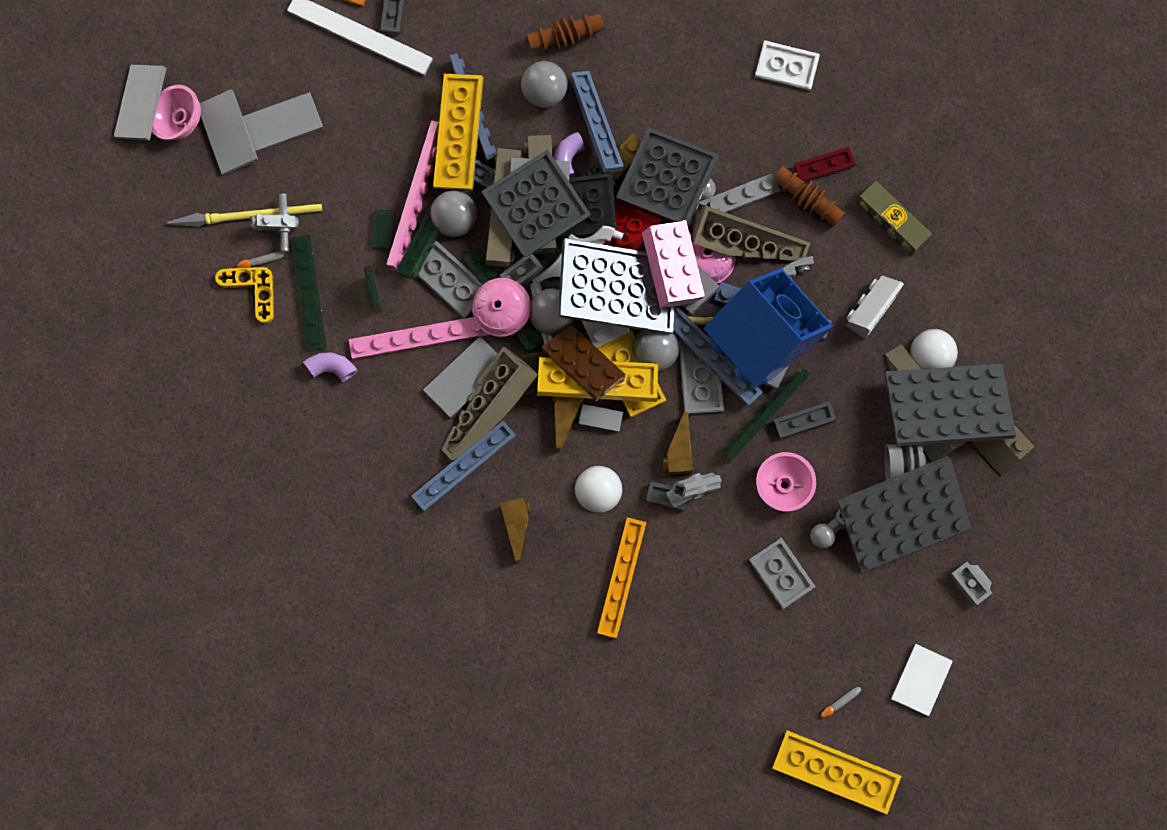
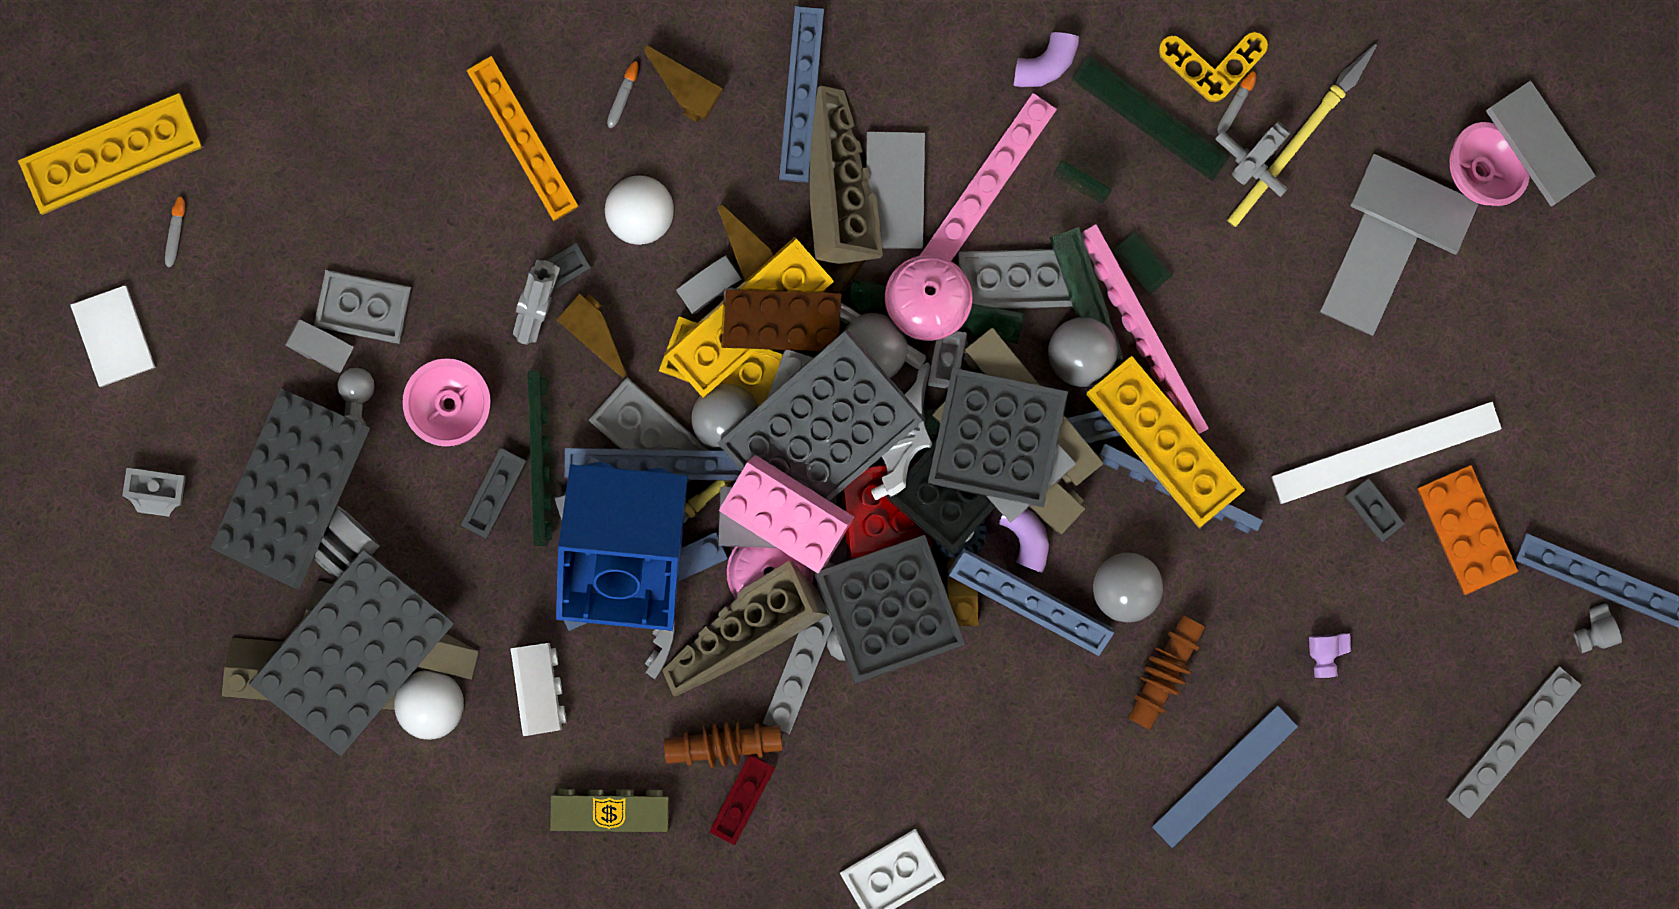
camera: 140 degrees right, 10 degrees up
(550, 552) = (624, 91): none -> light grey piece
(822, 573) = (319, 346): none -> light grey slope

